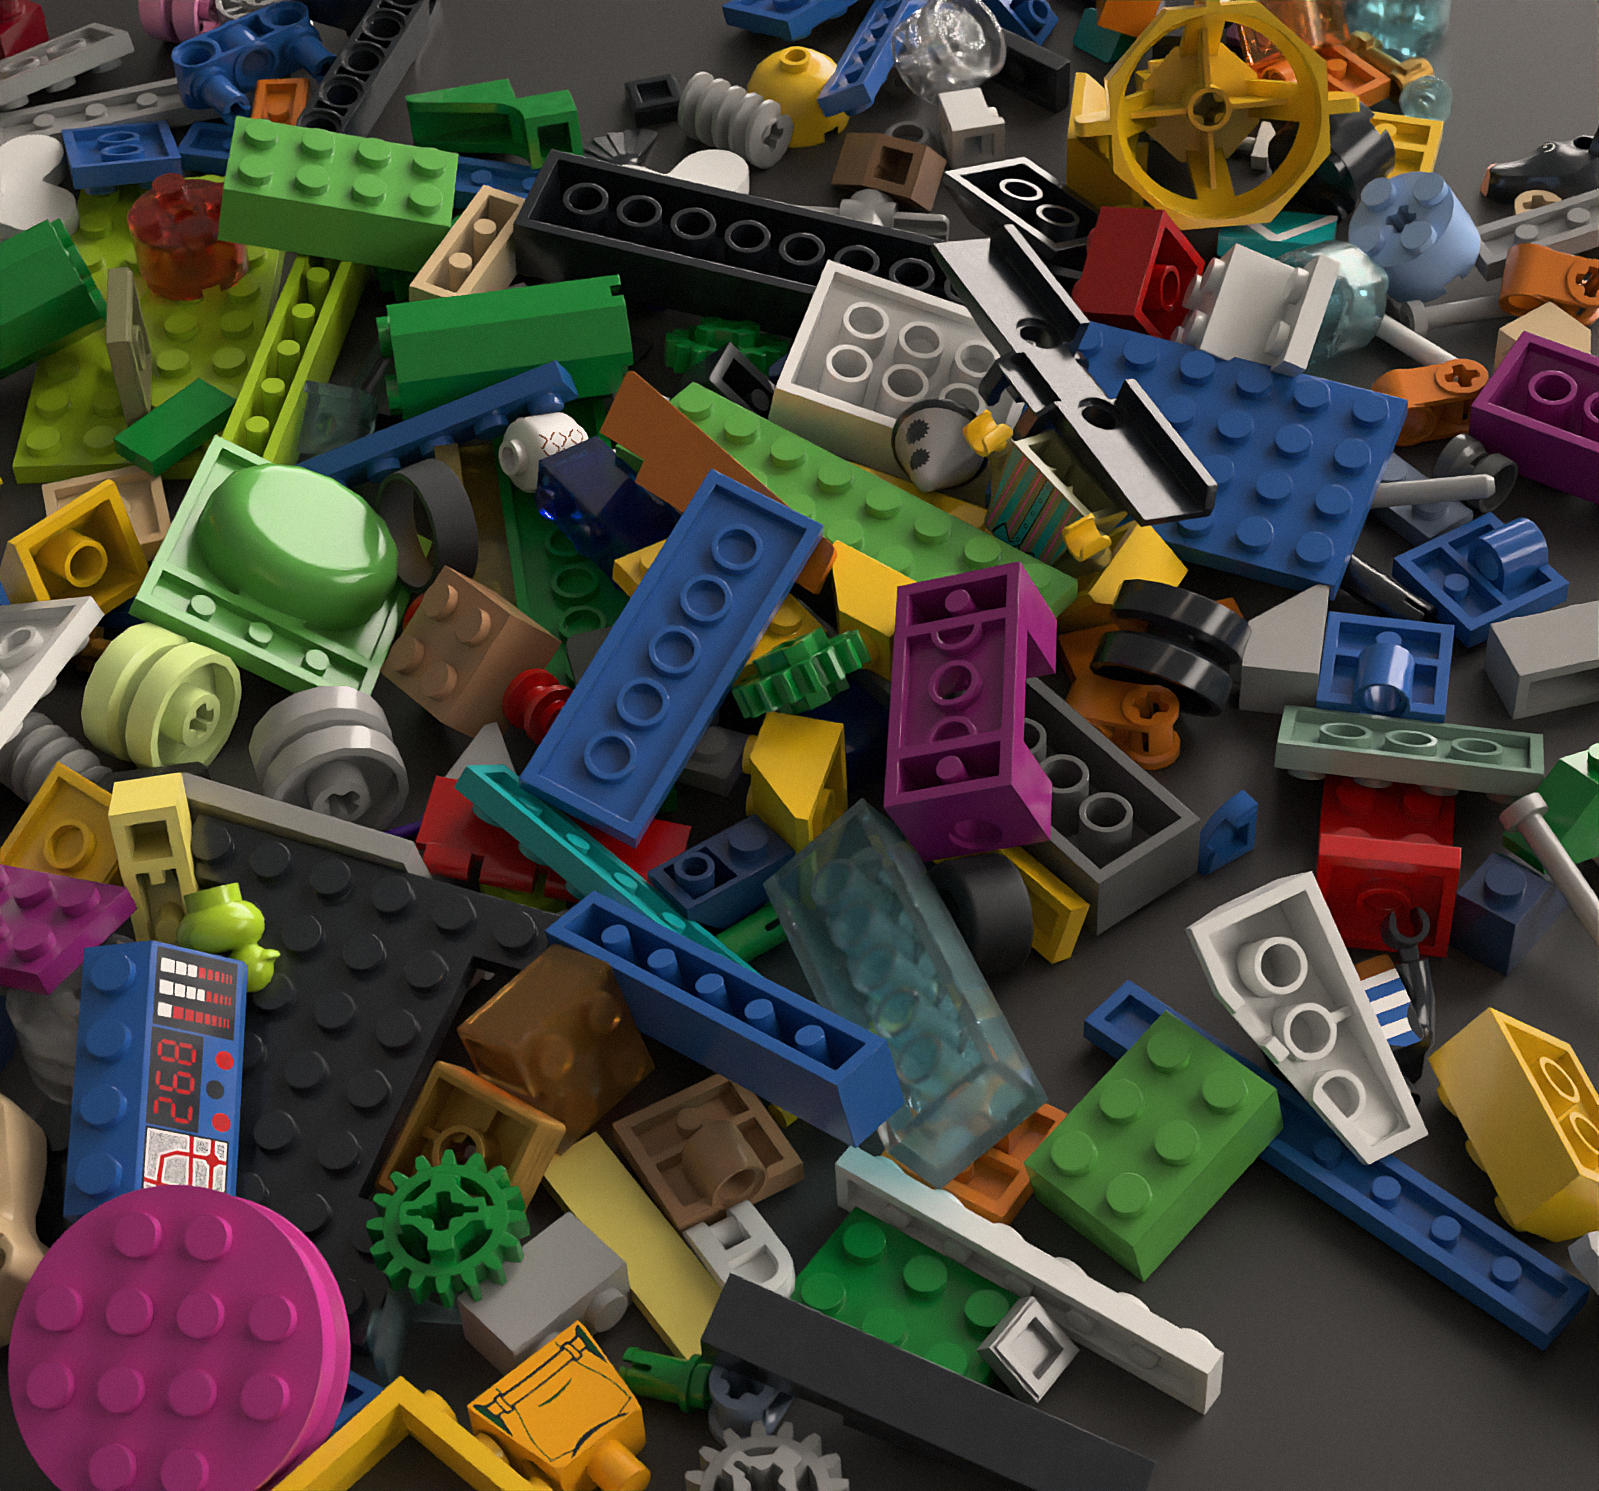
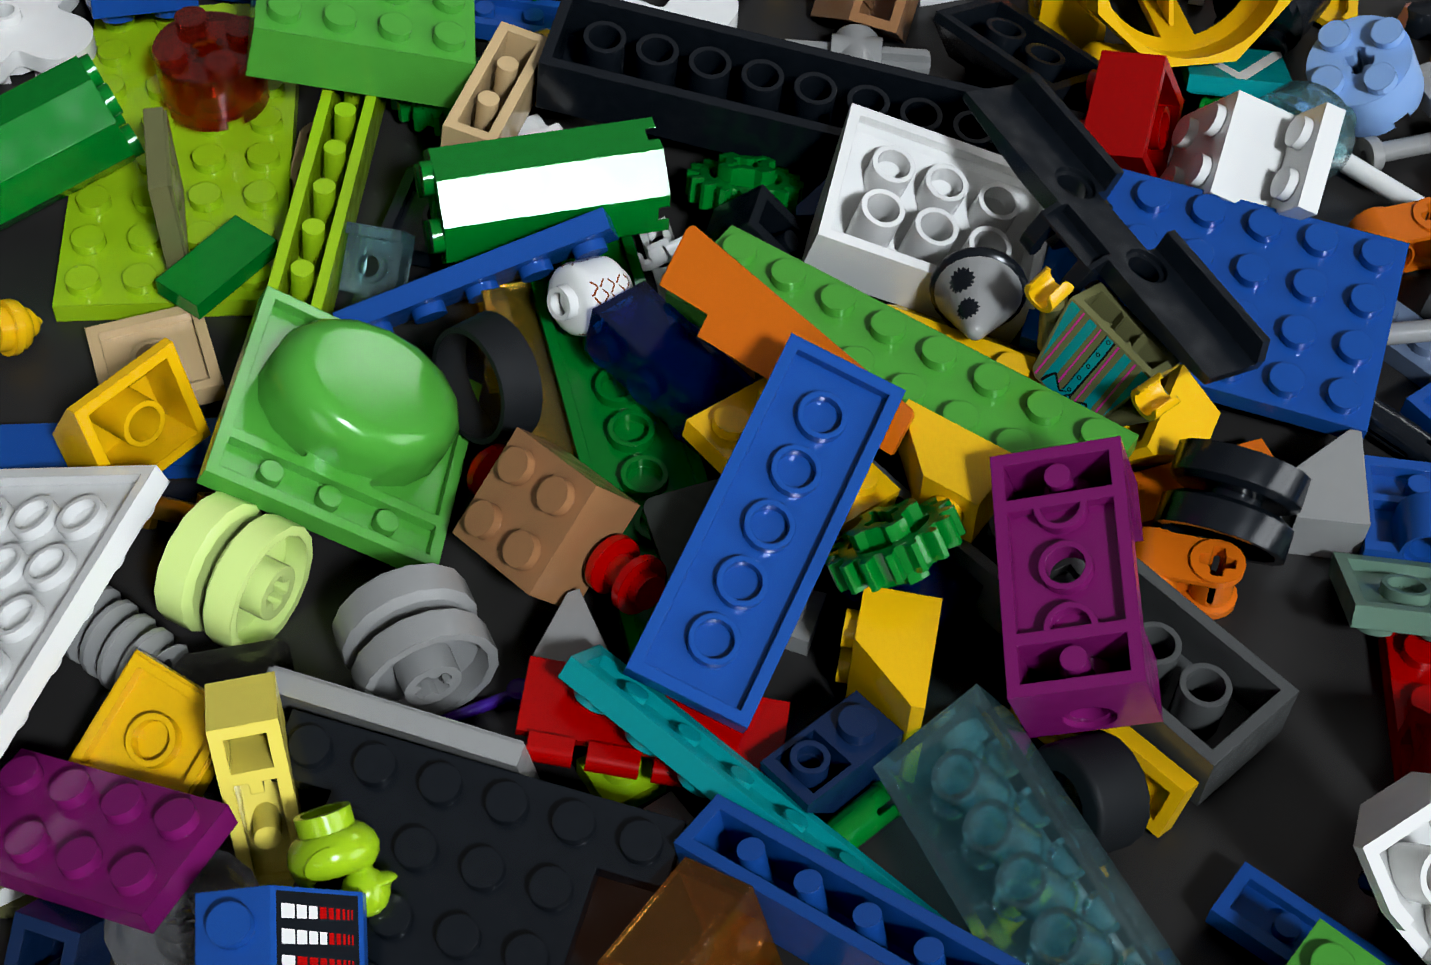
camera: 10 degrees left, 5 degrees up
(1228, 833) = (1314, 688): blue tile -> none

